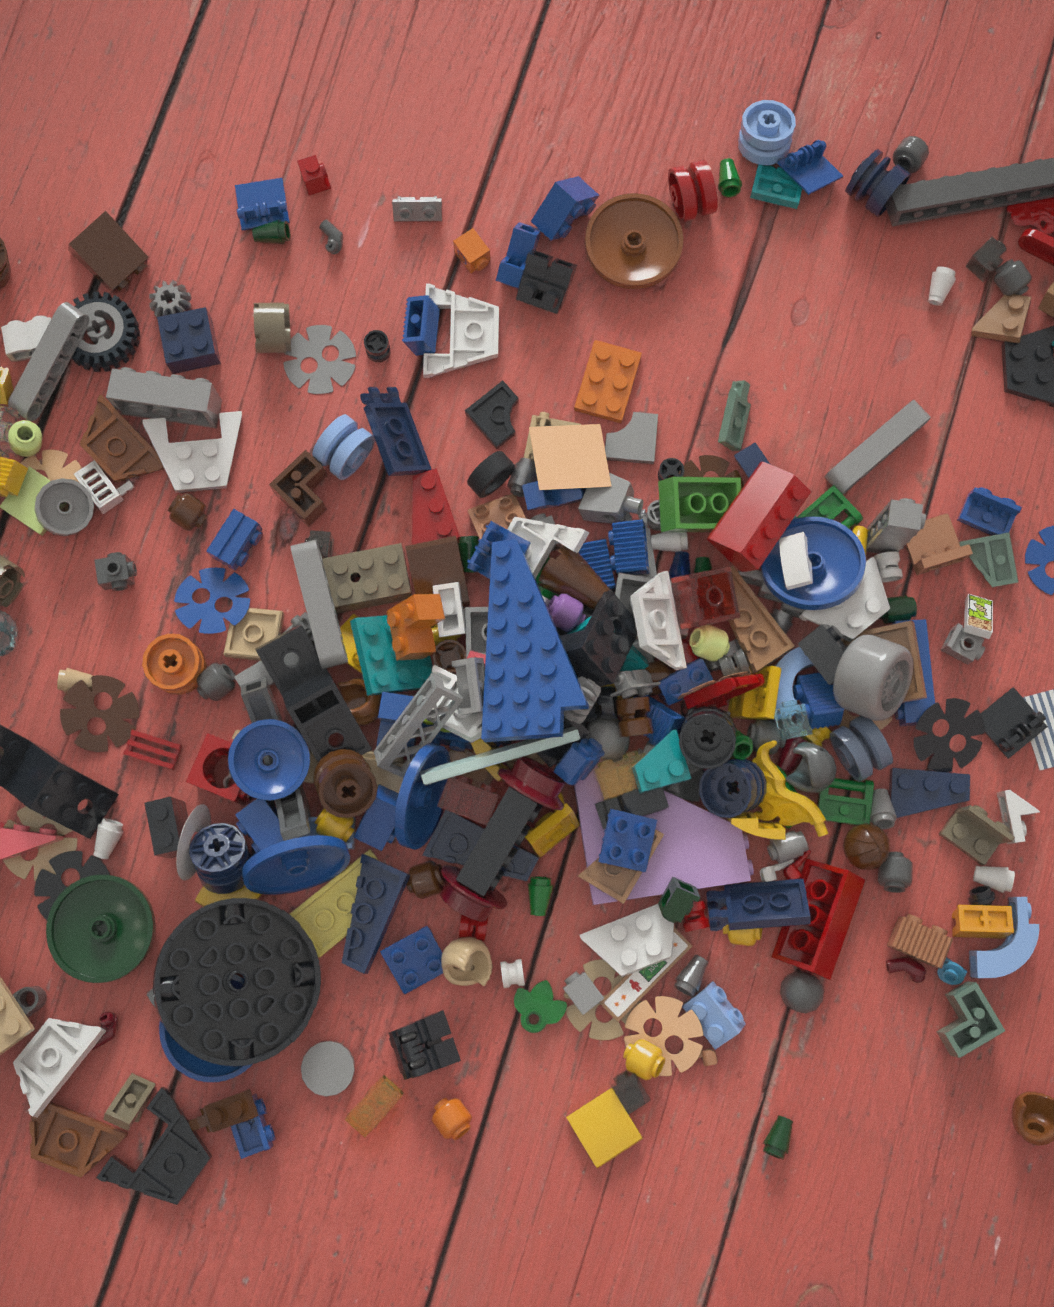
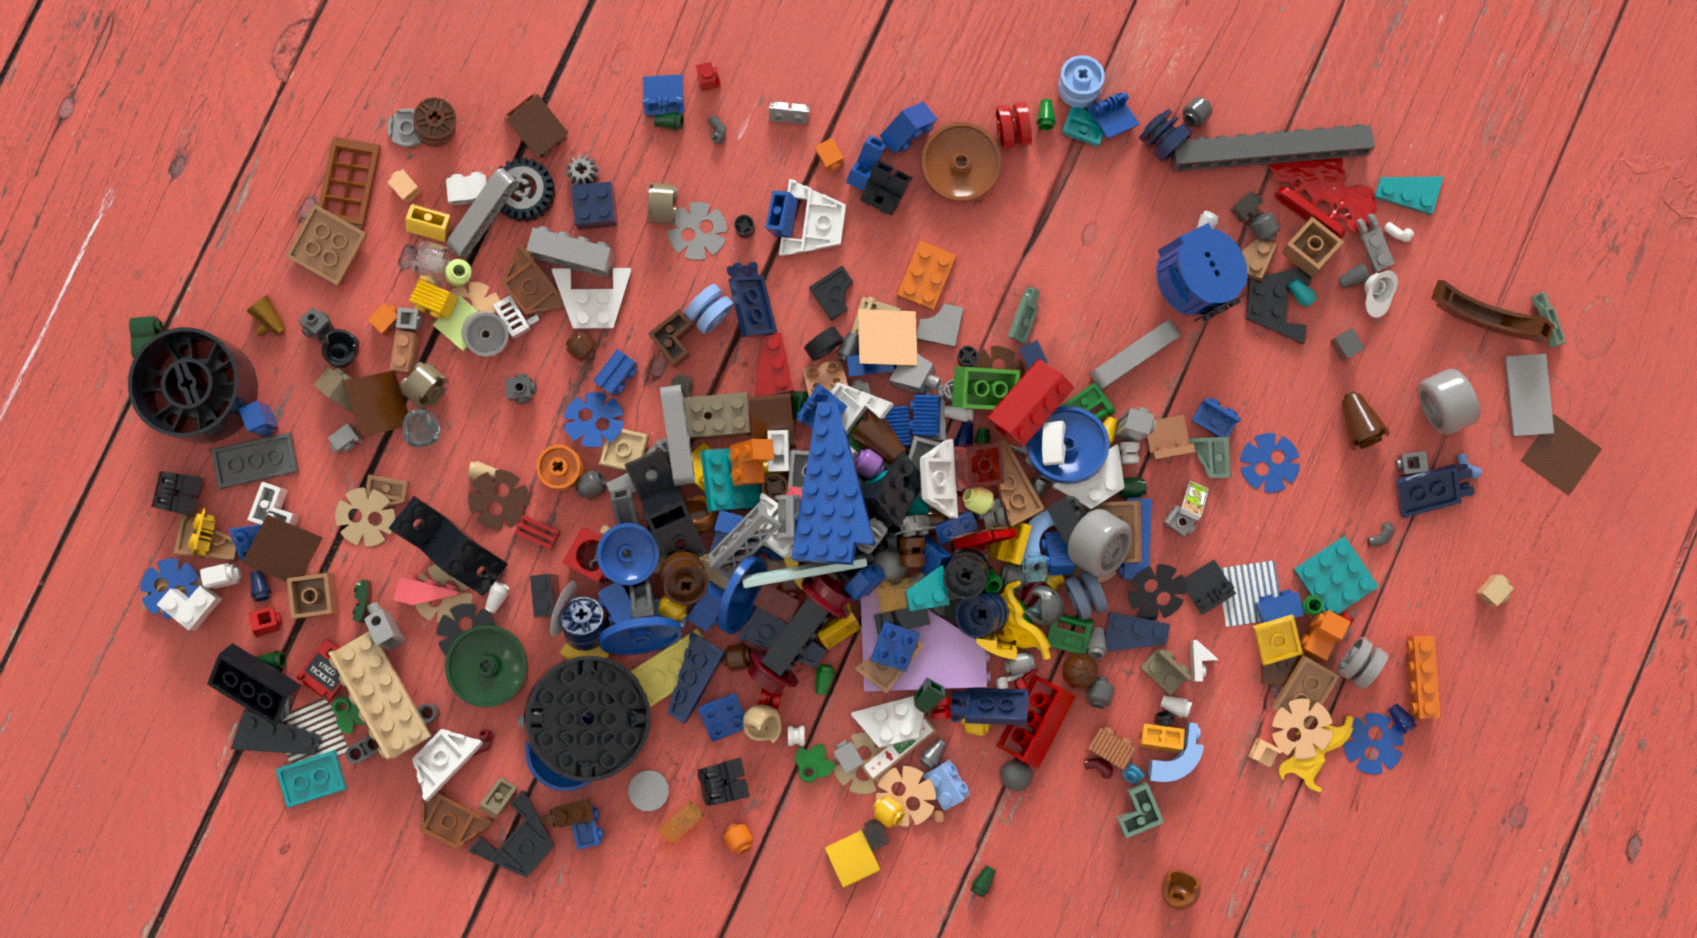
camera: 10 degrees right, 5 degrees up
(948, 335) = (1202, 272): none -> blue piece

